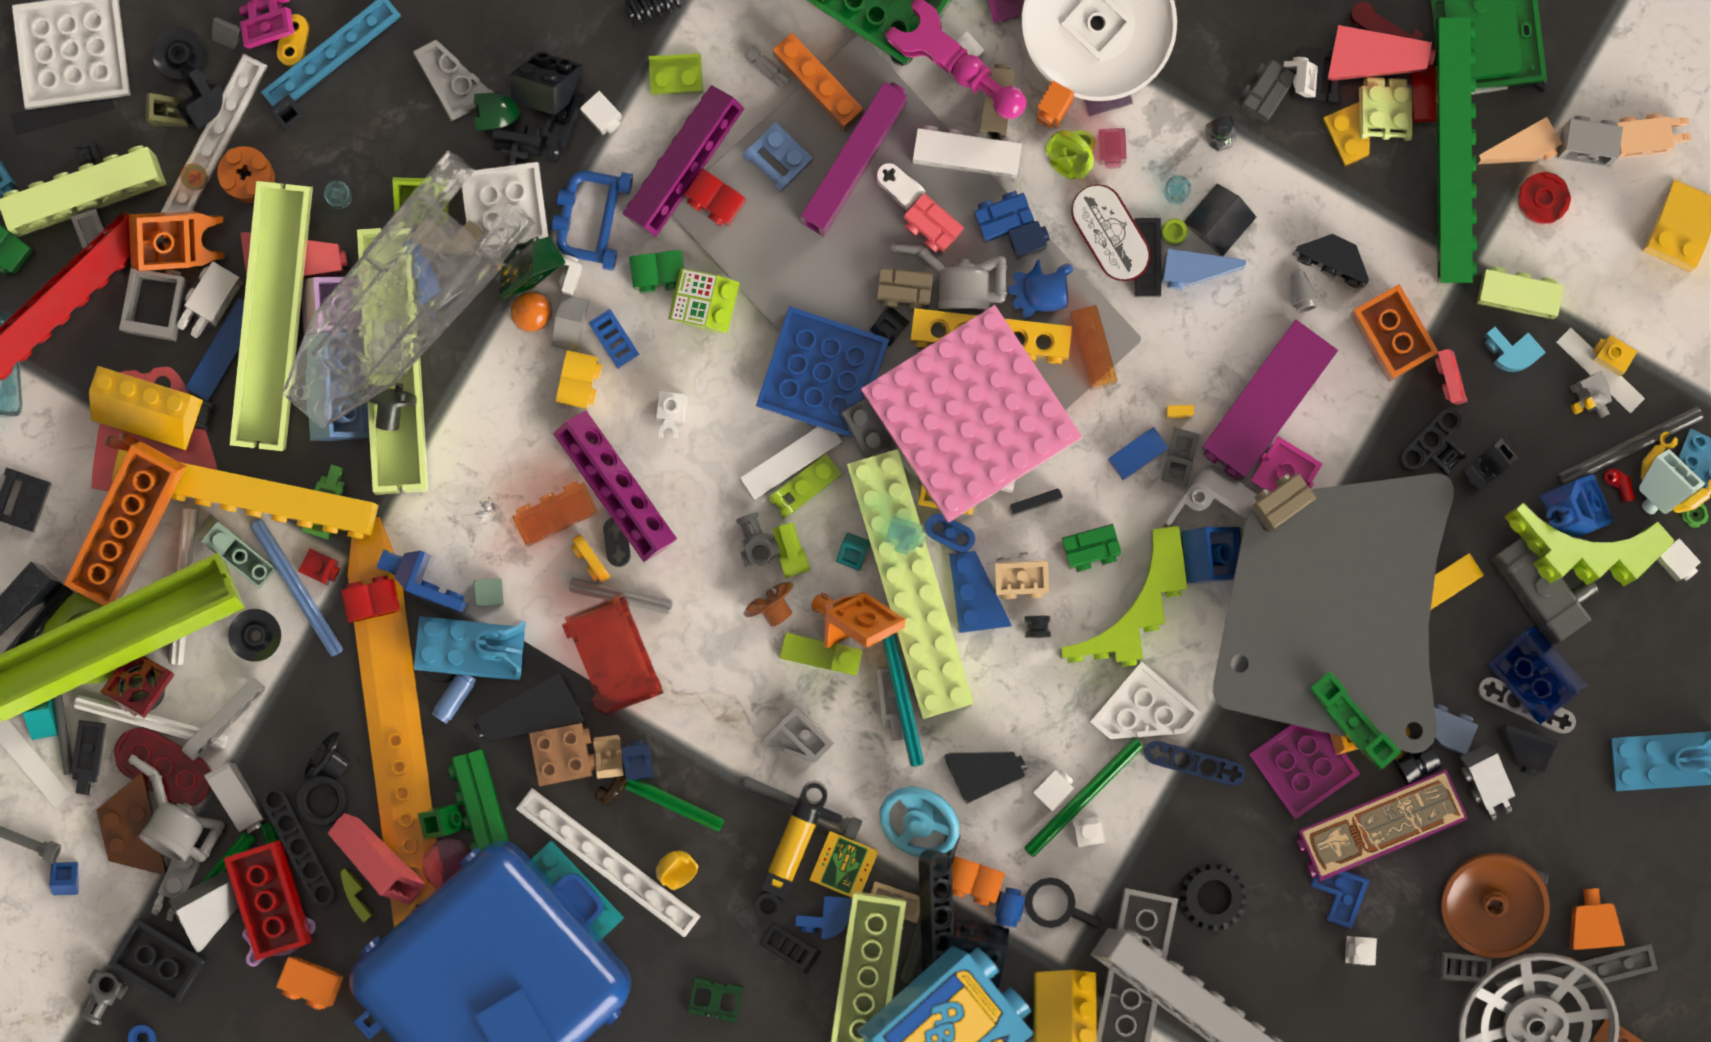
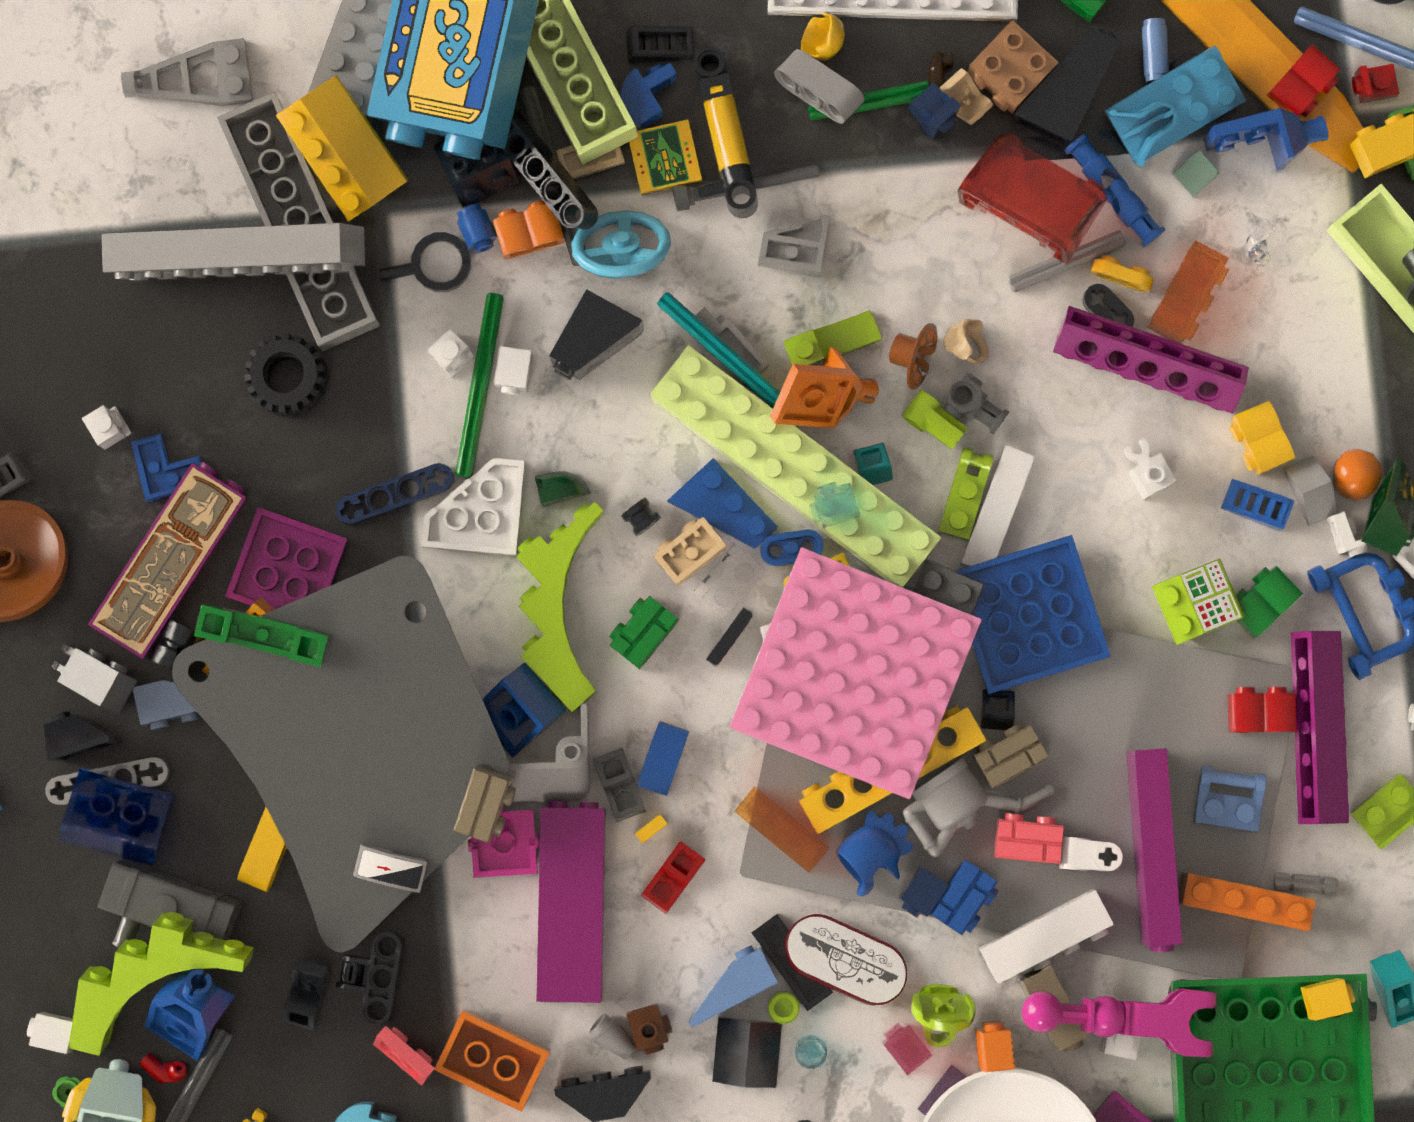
camera: 145 degrees right, 0 degrees up
(552, 605) = (1124, 201): none -> blue piece
(704, 836) = (819, 86): none -> light grey beam
(738, 591) = (957, 342): none -> tan piece
(1077, 687) = (559, 487): none -> dark green brick
(1187, 369) = (673, 877): none -> red slope
(1274, 280) = (649, 1028): none -> reddish brown brick
(1375, 505) = (390, 868): none -> slope

